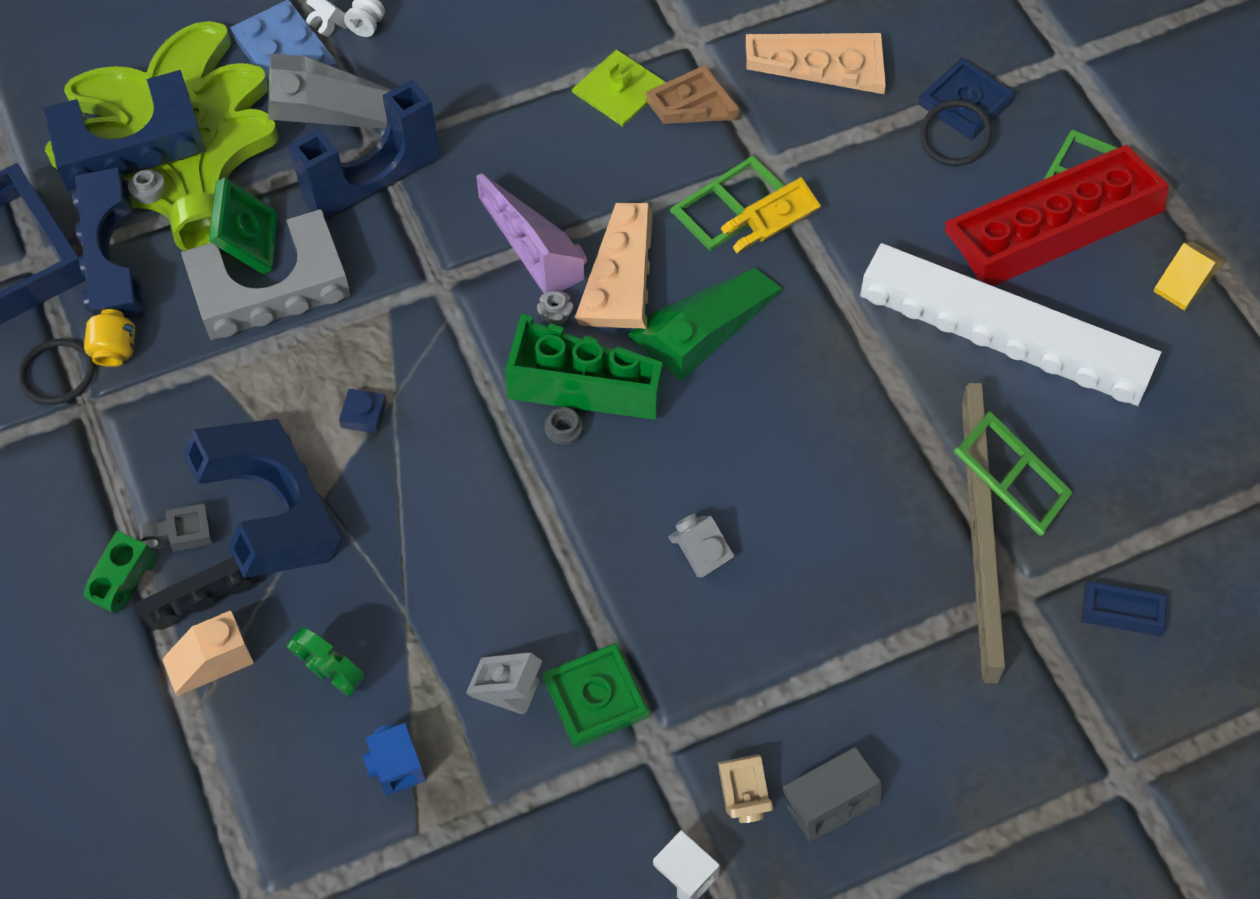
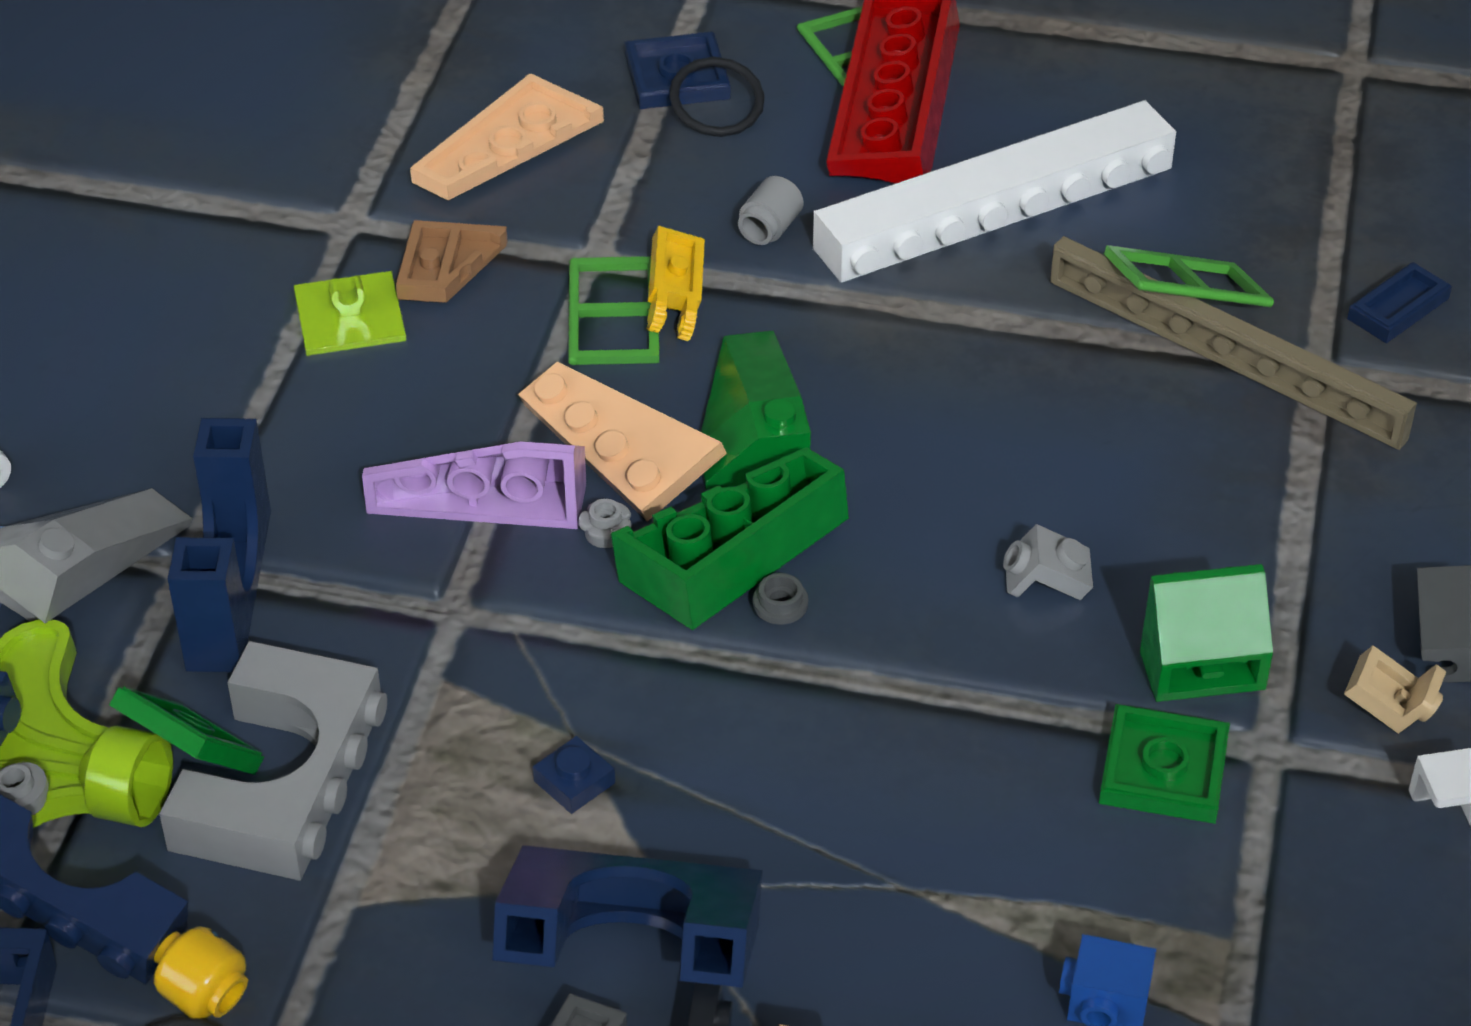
camera: 55 degrees left, 15 degrees down
(325, 661) = (930, 969): green plate -> none
(506, 681) = (1089, 819): light grey slope -> none
(695, 658) = (1207, 633): none -> slope
(876, 221) = (770, 210): none -> light grey brick
(1188, 274) = (1058, 45): yellow slope -> none

